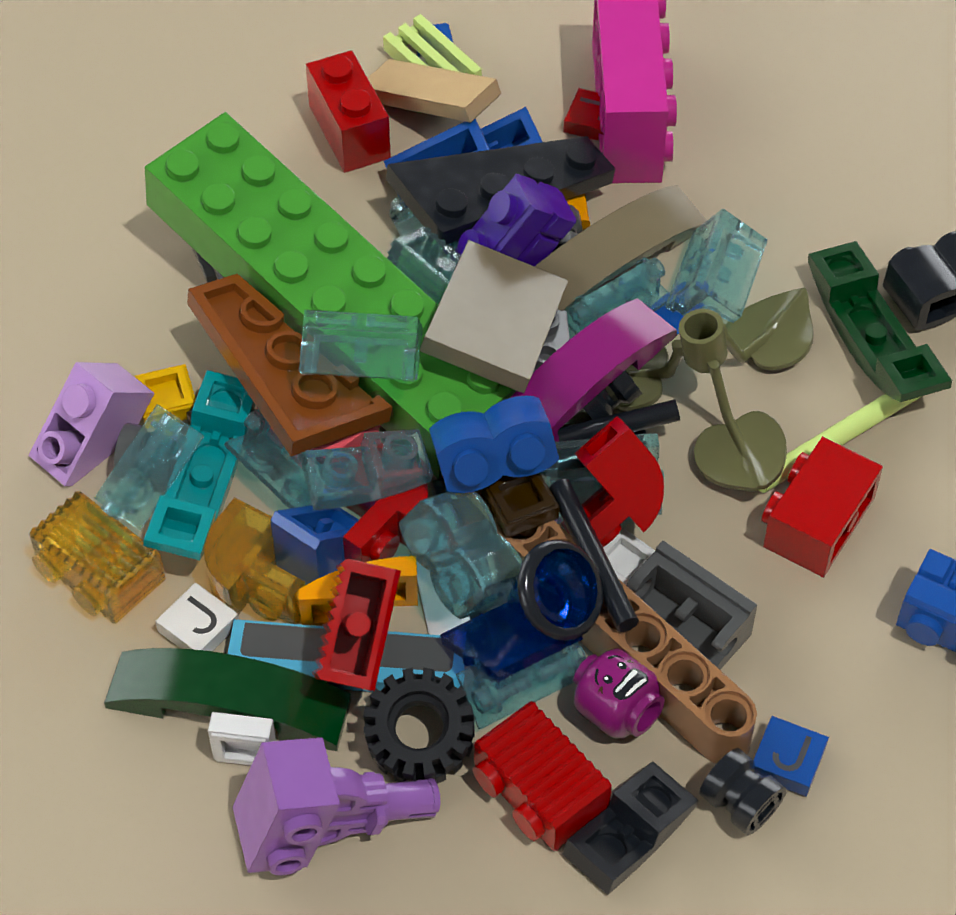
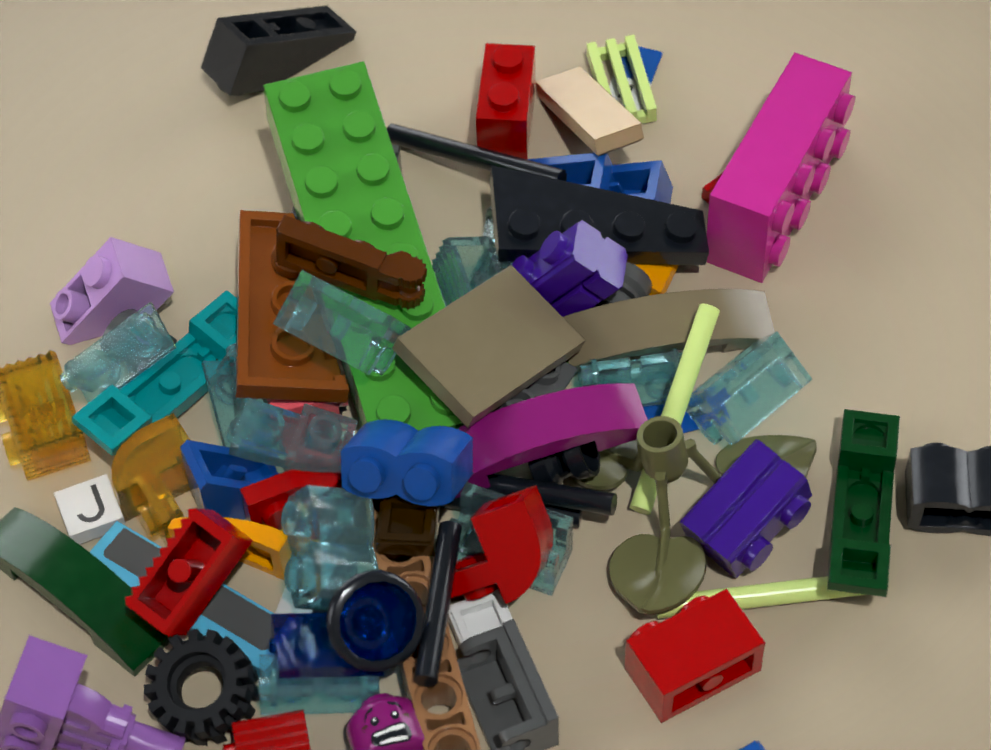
camera: 30 degrees right, 0 degrees up
(93, 145) = (271, 46): none -> black slope
(171, 390) = (190, 295): yellow tile -> none
(238, 737) = (53, 624): white tile -> none
(337, 288) = (350, 263): none -> reddish brown hinge
(361, 165) = (467, 153): none -> black bar
(673, 302) = (680, 392): none -> yellowish green bar
(790, 365) = (748, 509): none -> dark purple brick

